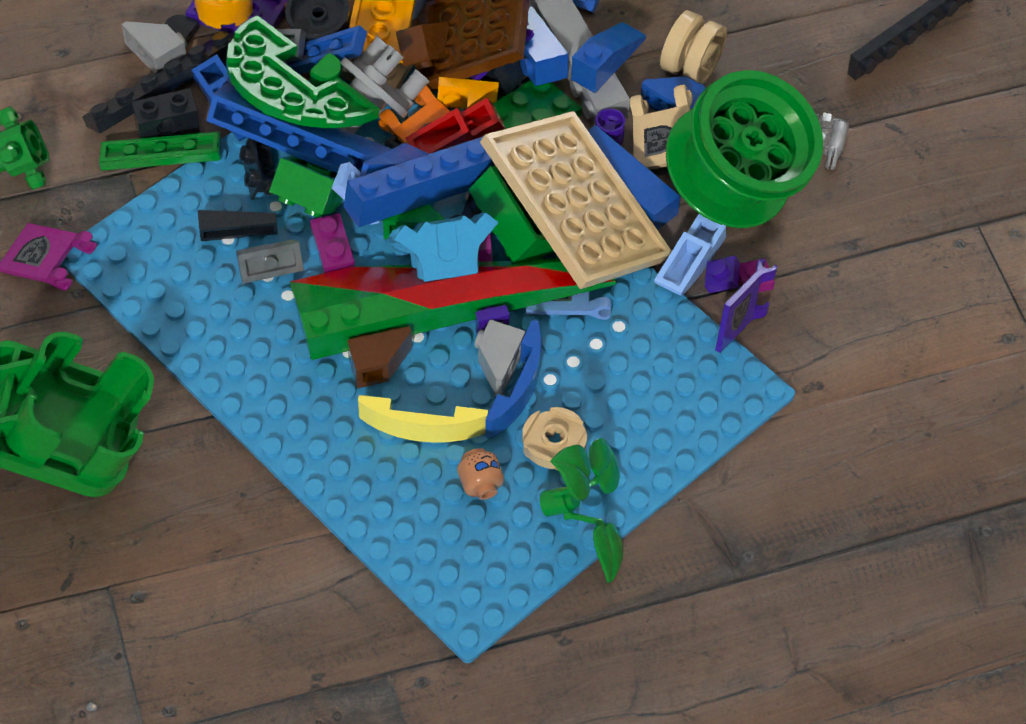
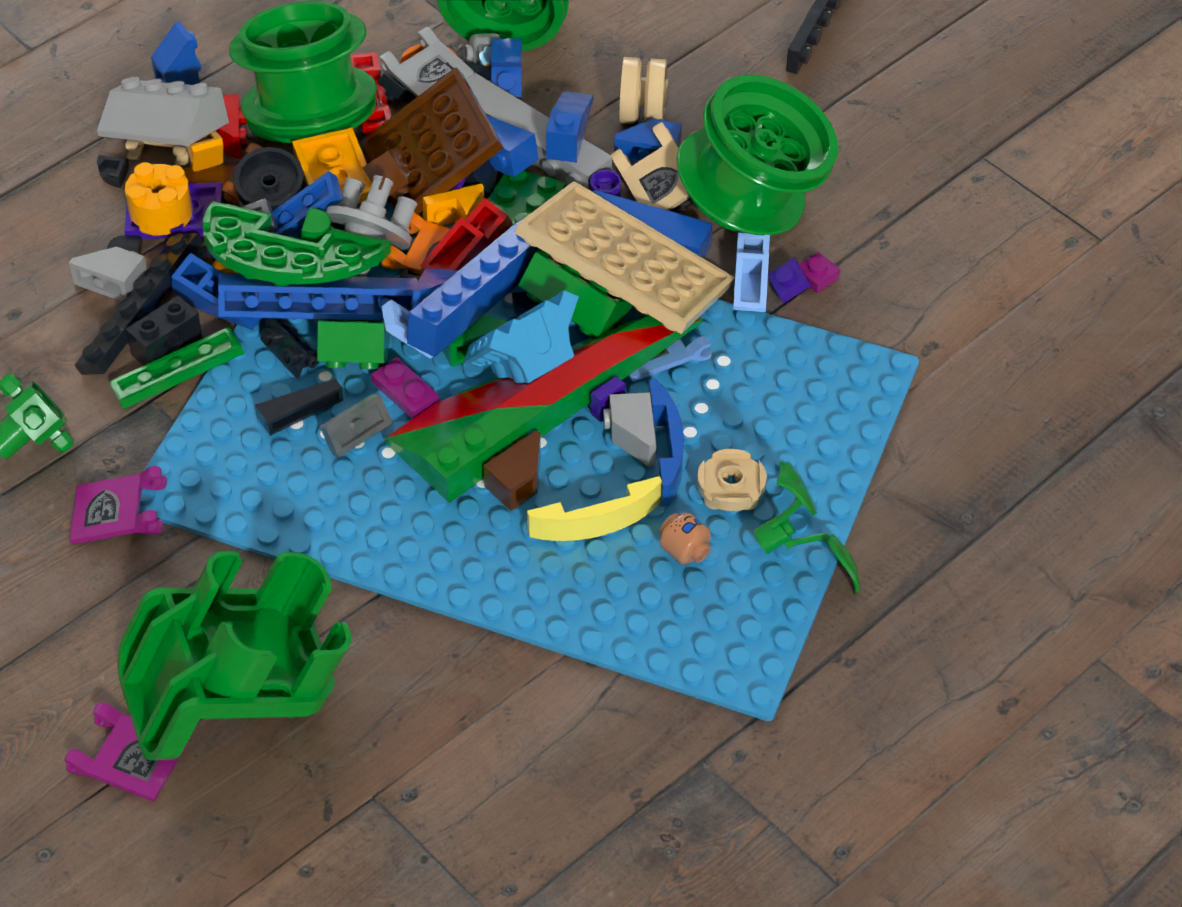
camera: 25 degrees left, 5 degrees down
(742, 306) = (834, 299): dark purple flag -> none

